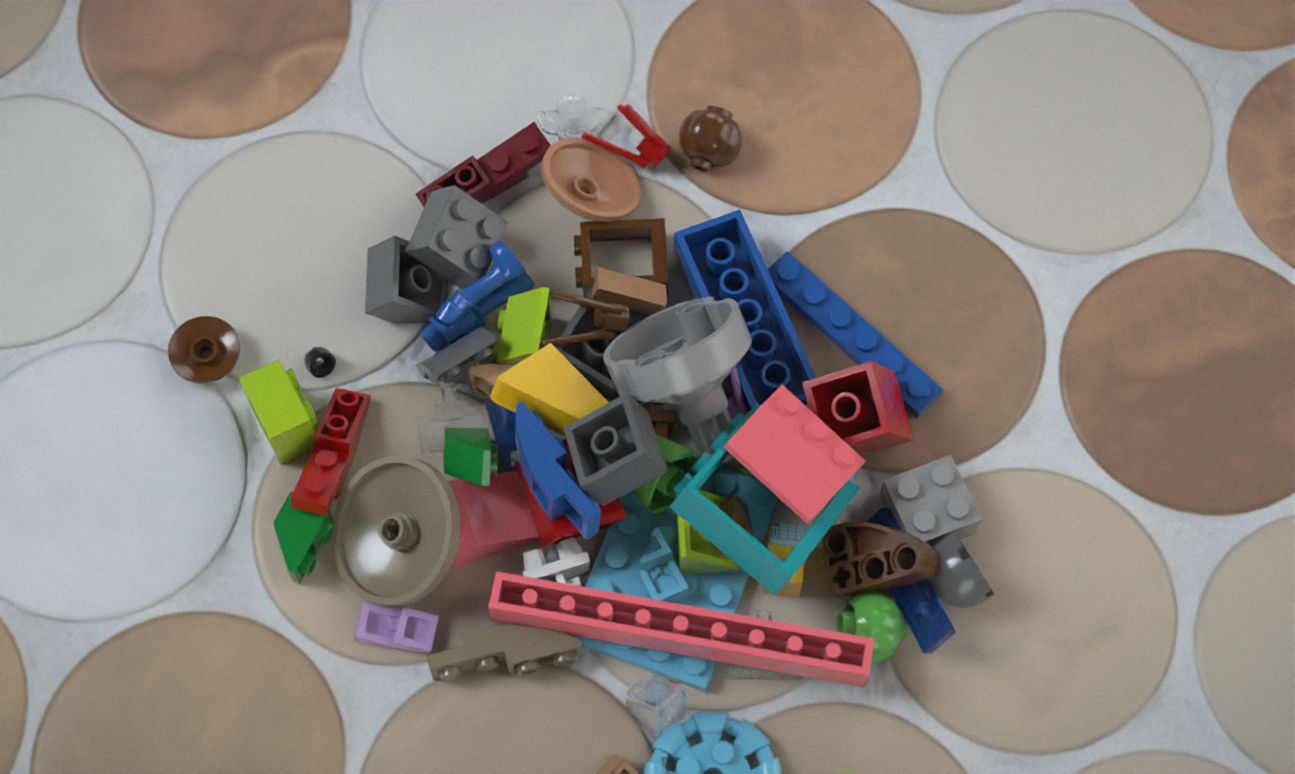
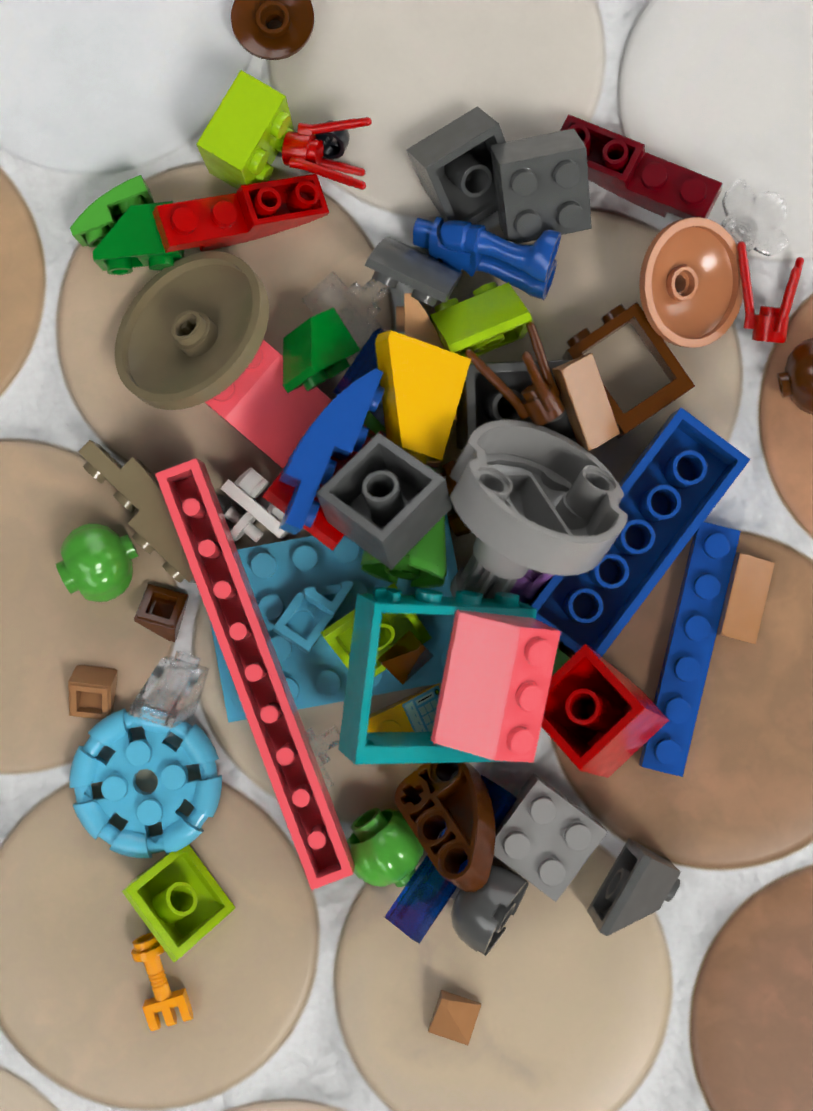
camera: 60 degrees right, 20 degrees up
(265, 553) = (101, 215): none -> bright green slope
(316, 382) = (305, 152): none -> red plant
(396, 628) = (113, 402): lavender slope -> none
(520, 713) = (97, 562): none -> bright green plant
(589, 690) = (162, 611): none -> reddish brown slope
(838, 275) = (745, 598): none -> medium nougat slope
(1002, 463) = (633, 888): none -> dark grey slope
(1032, 656) = (454, 1017): none -> medium nougat slope

